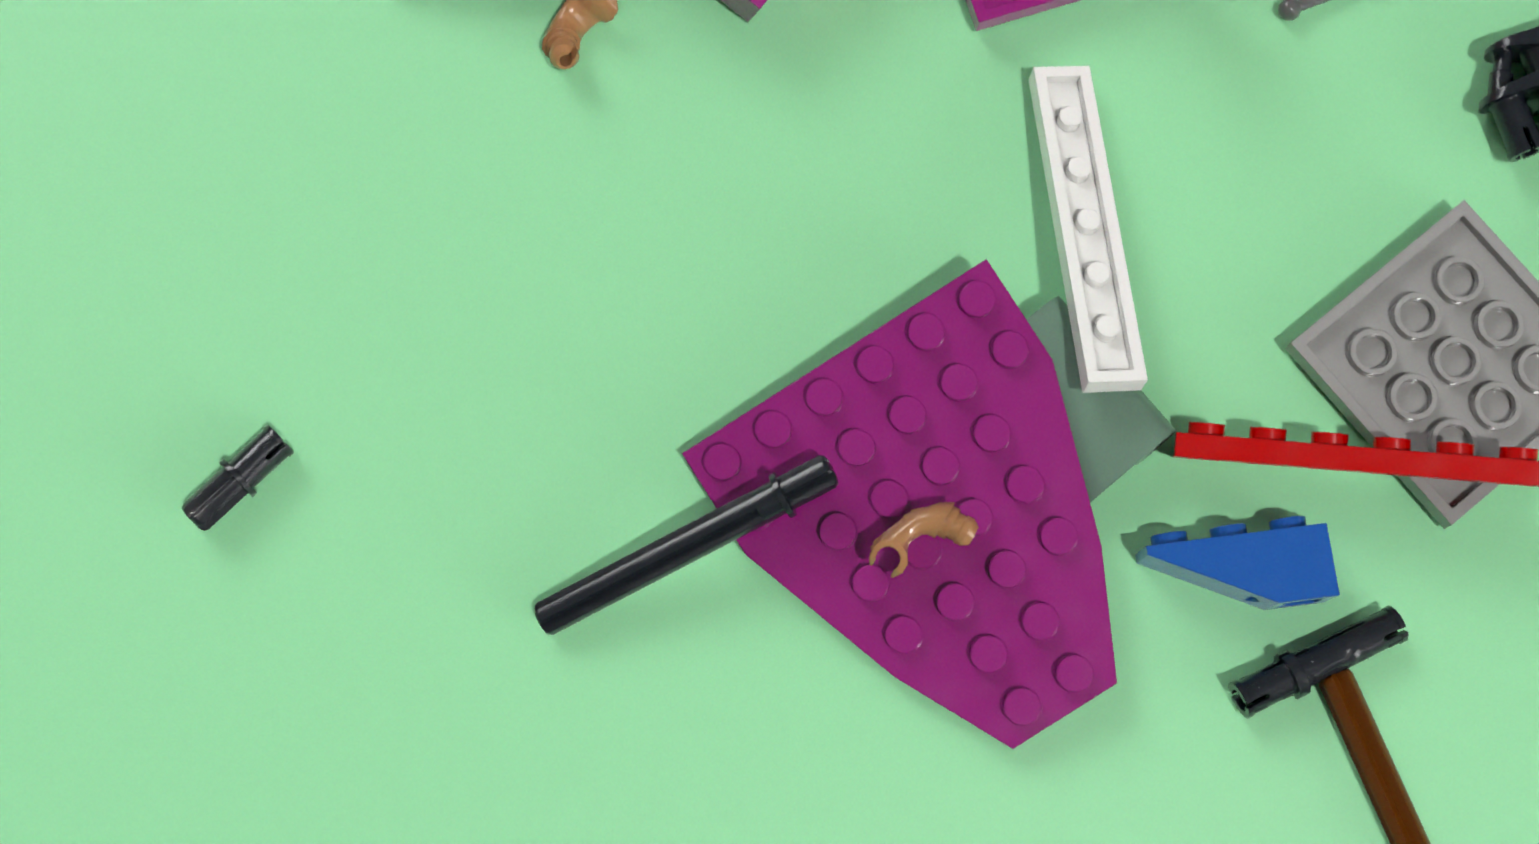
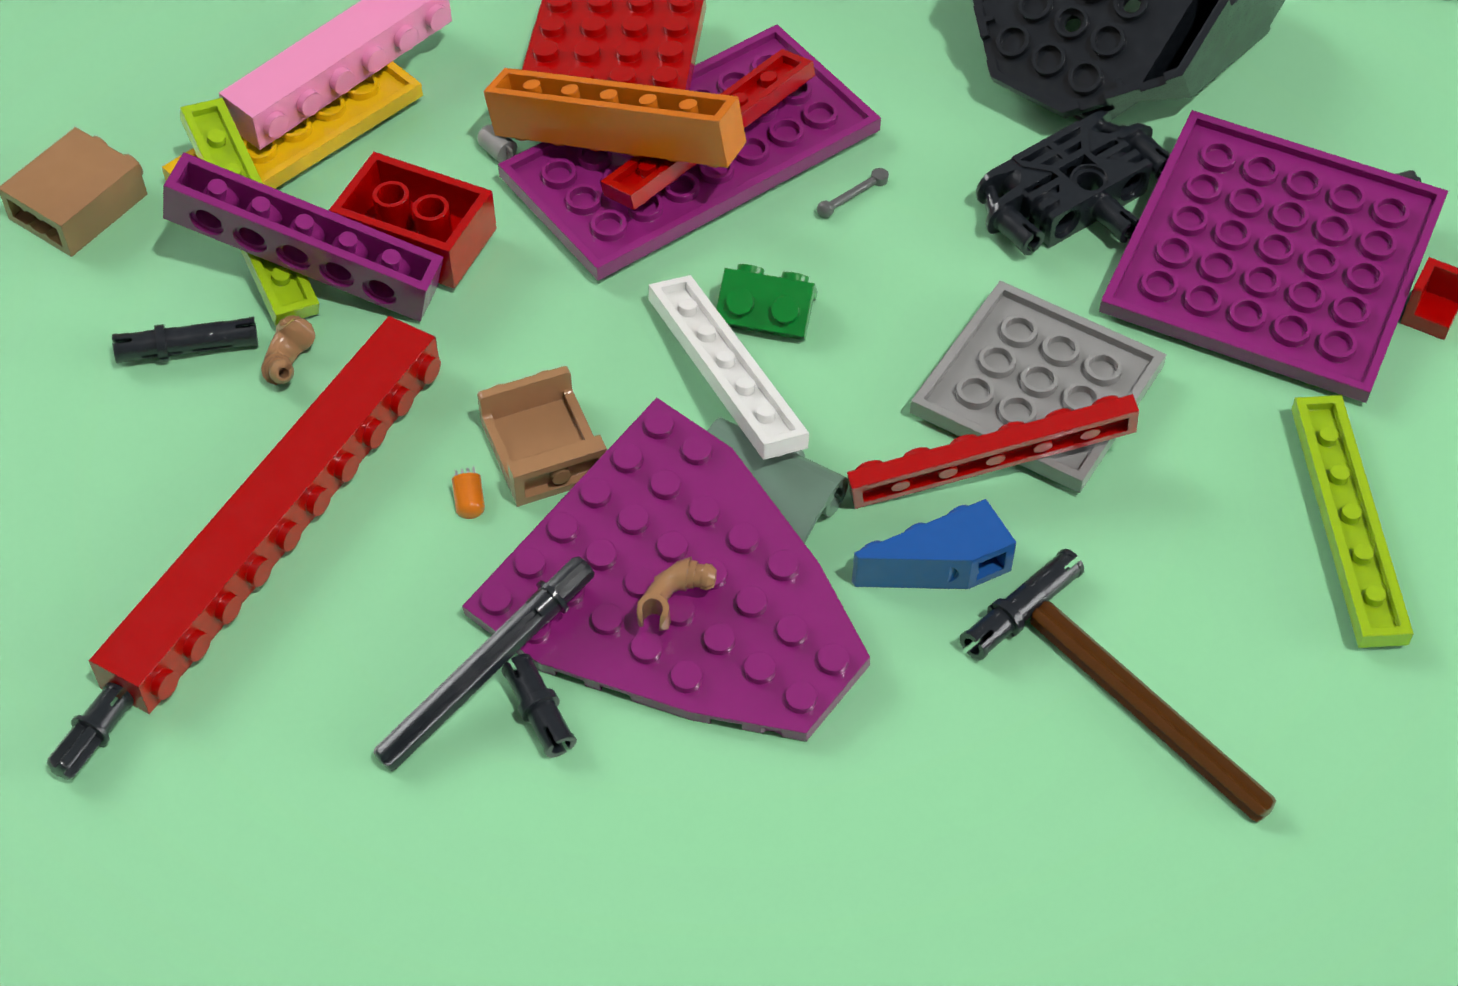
camera: 15 degrees left, 25 degrees down
(506, 248) = (266, 515): none -> red brick
(730, 610) = (538, 705): none -> black pin
(734, 293) = (468, 494): none -> orange piece
(841, 244) = (539, 434): none -> medium nougat panel
(1168, 134) = (766, 302): none -> green bracket

